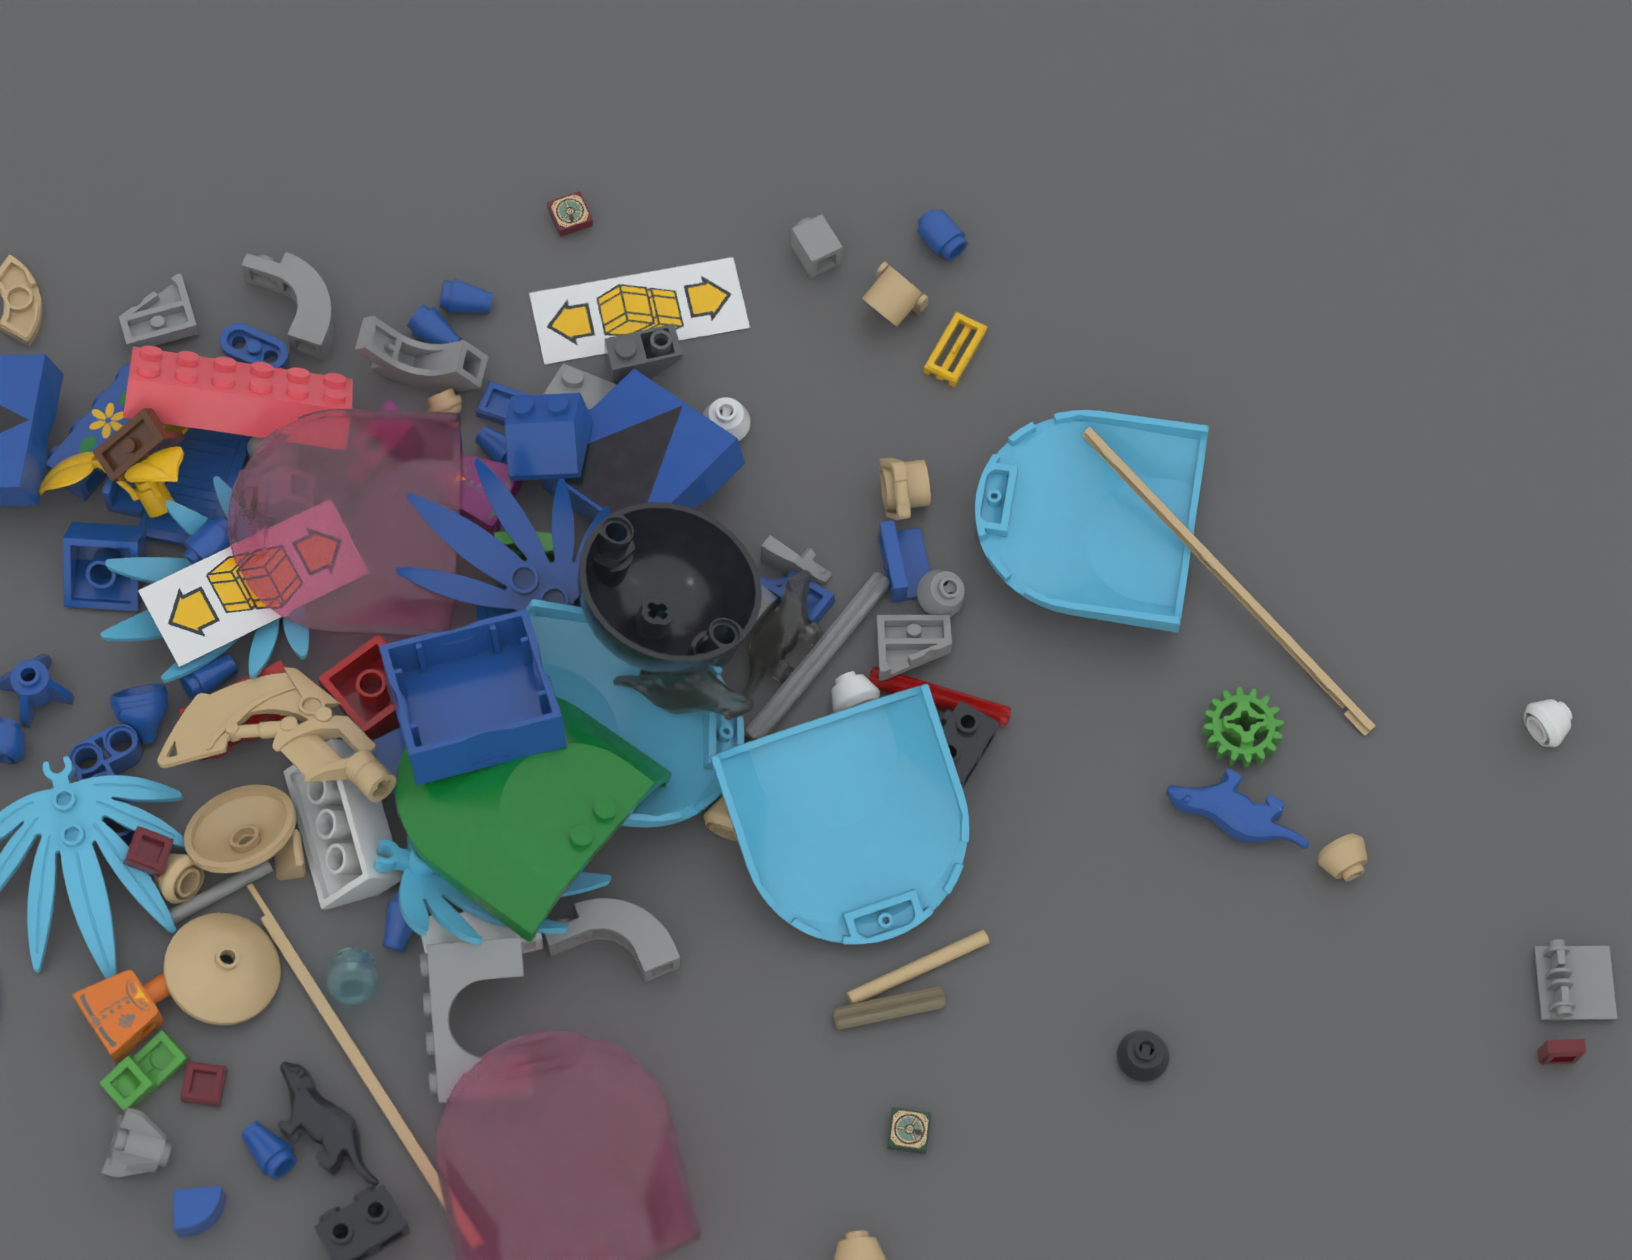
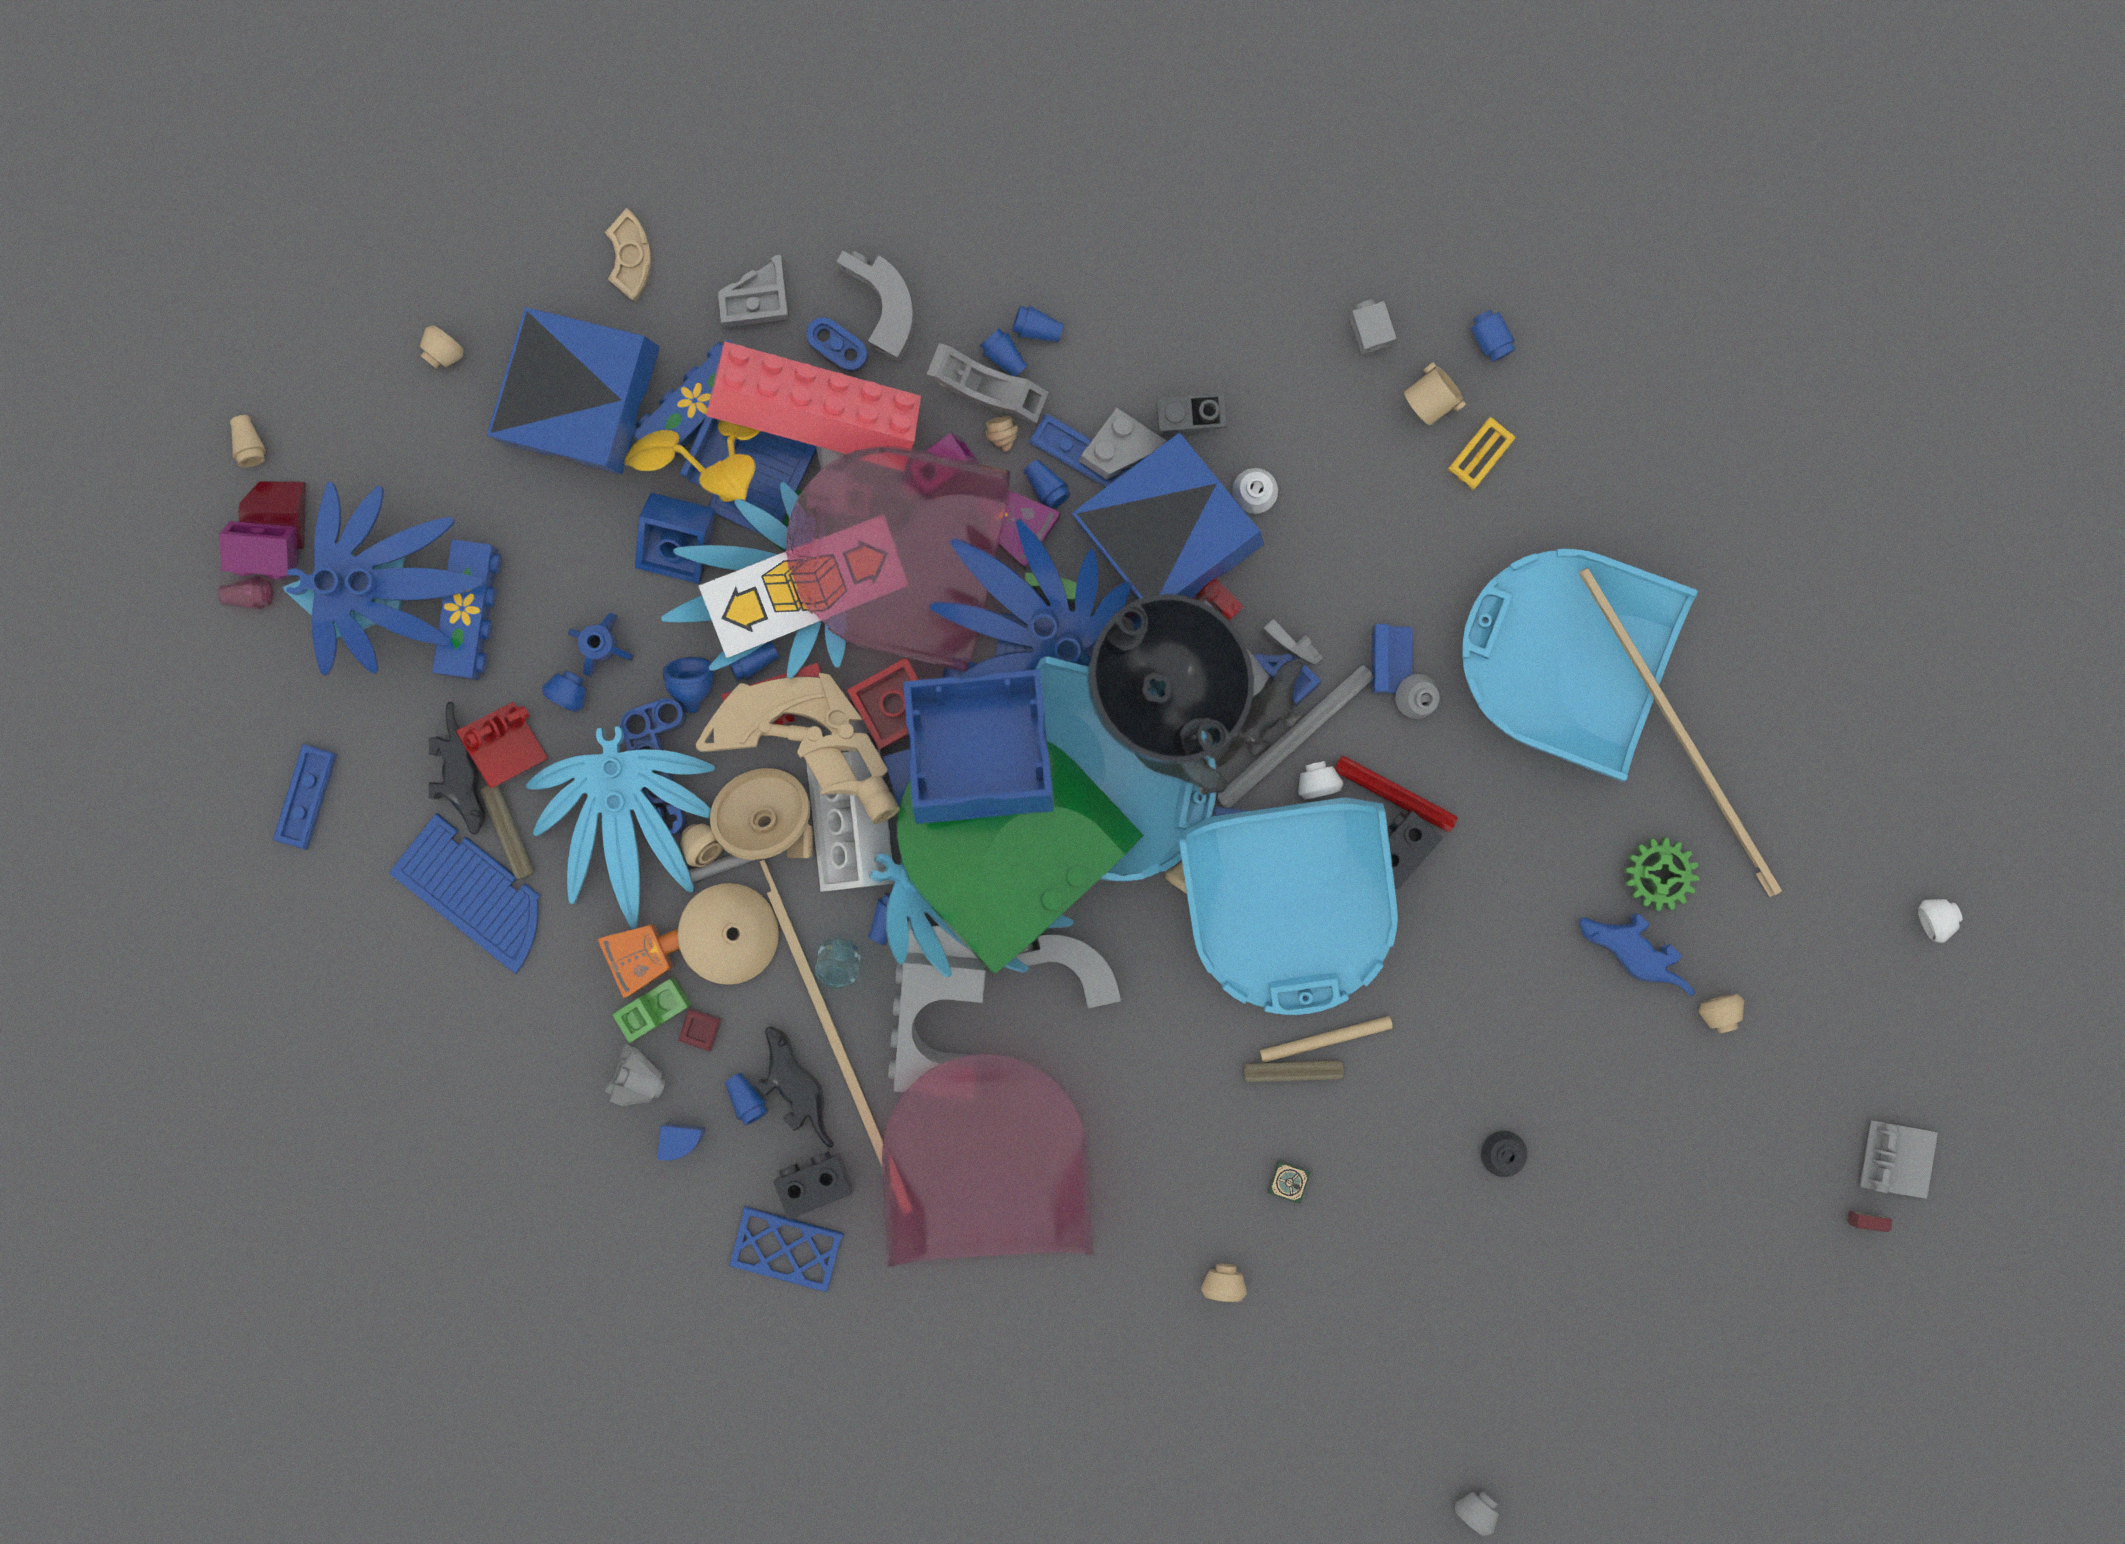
camera: 20 degrees right, 20 degrees up
(134, 443) = (713, 442): reddish brown panel -> none
(148, 851) = (677, 825): dark red tile -> none
(207, 540) = (767, 540): blue brick -> none
(546, 436) = (1087, 493): blue slope -> none
(570, 213) = (1149, 251): tile -> none
(694, 297) = (1196, 360): sticker -> none
(903, 486) = (1404, 589): tan piece -> none
(910, 641) = (1380, 739): light grey wing -> none

